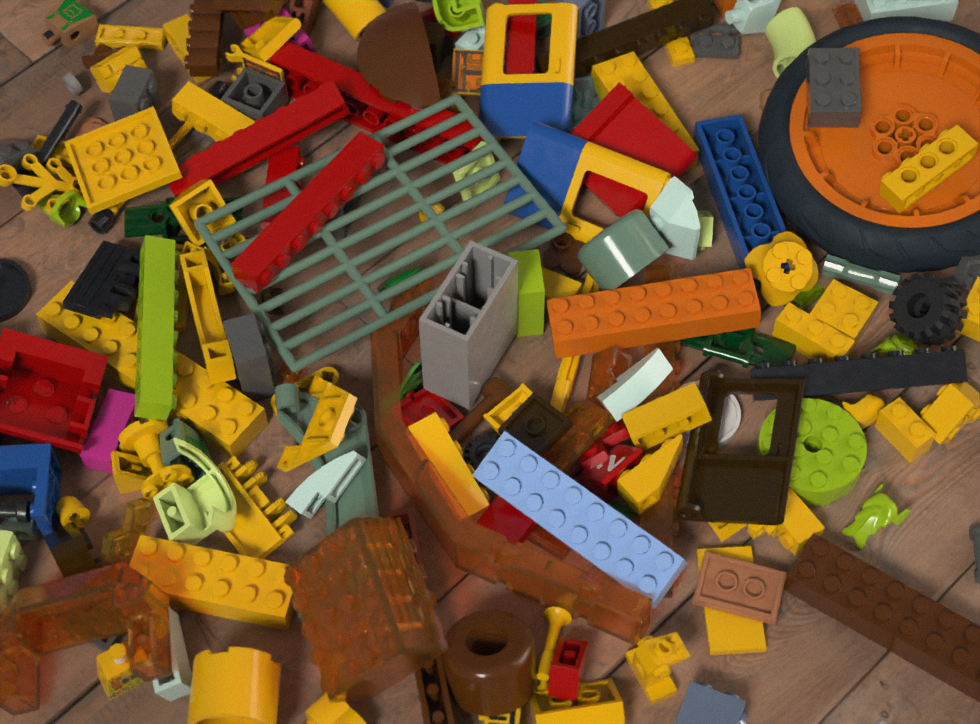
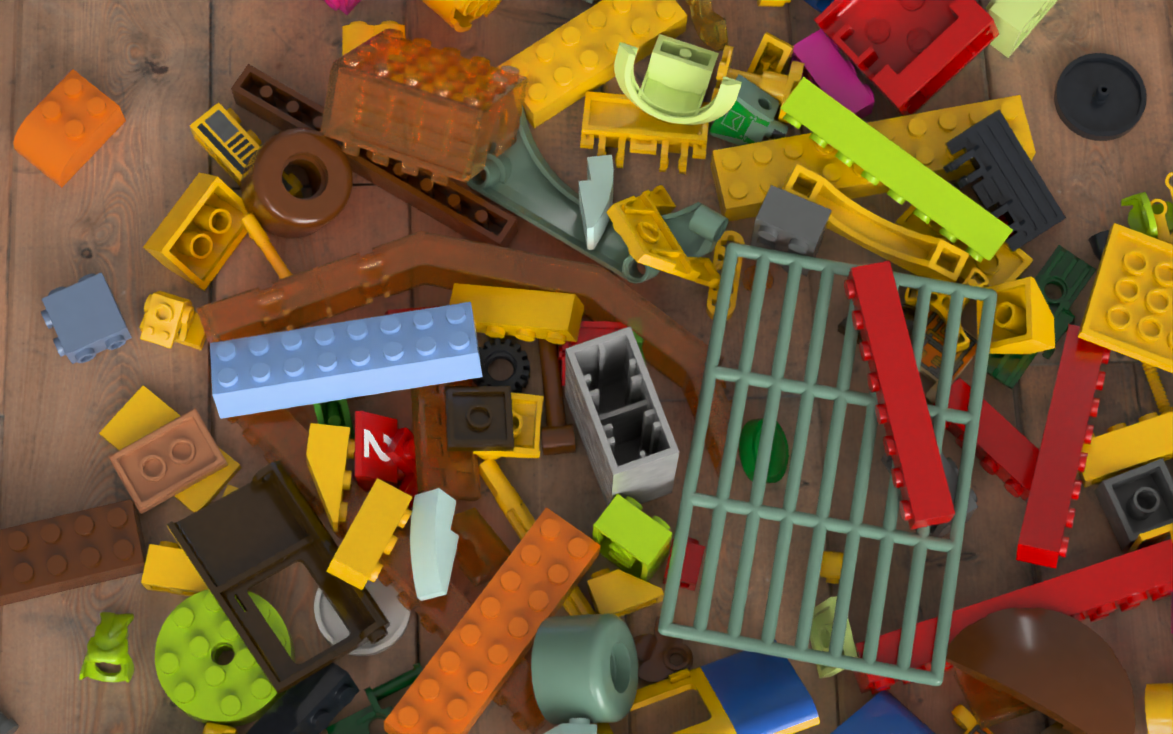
camera: 130 degrees right, 15 degrees up
(568, 668) = (235, 245): red brick -> none

